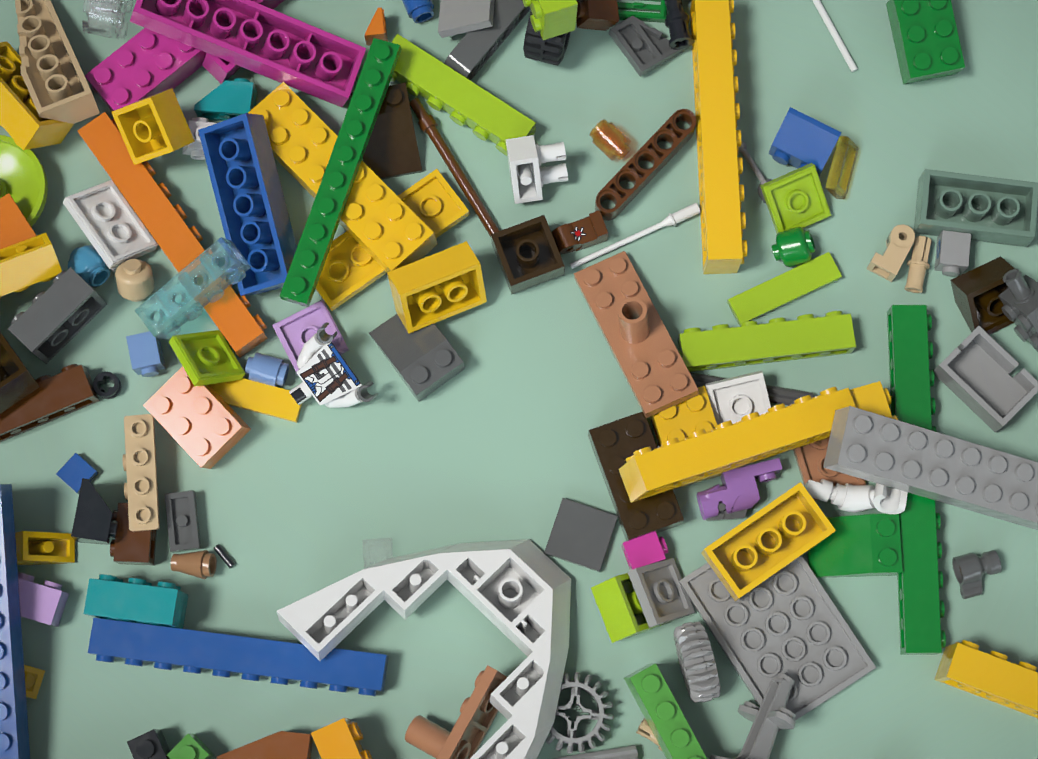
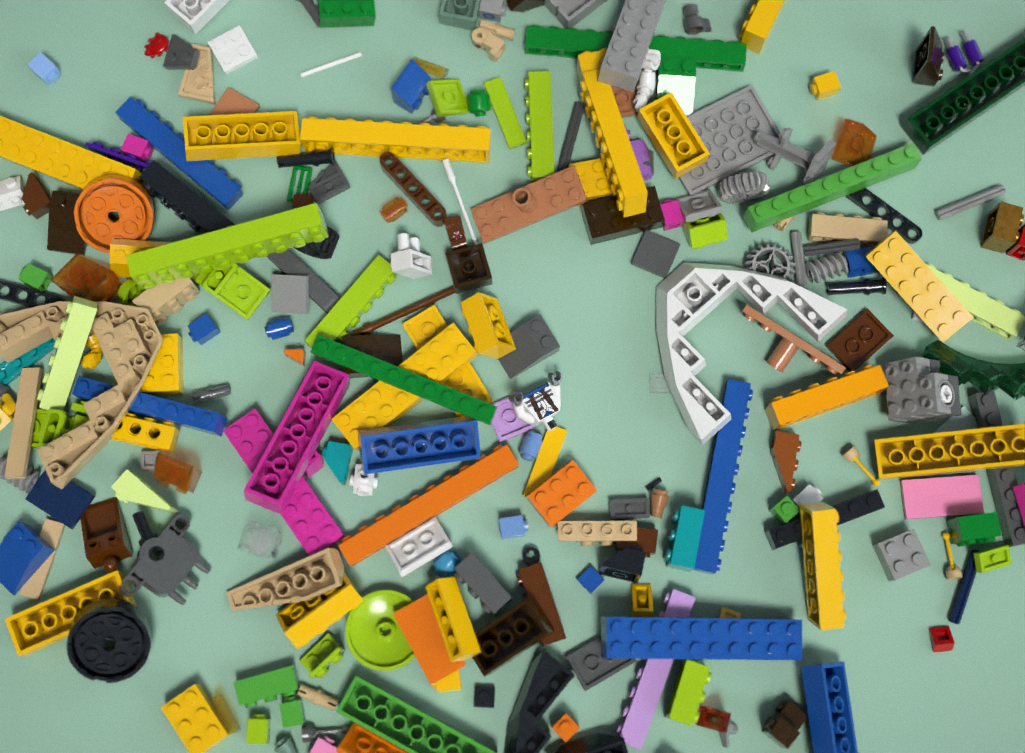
camera: 90 degrees left, 0 degrees up
(134, 279) = (461, 531): tan head -> none
(153, 126) = (357, 507): yellow brick -> none
(193, 289) = (475, 487): clear light blue brick -> none
(206, 358) = (521, 483): lime tile -> none
(738, 397) = (579, 144): white plate -> none

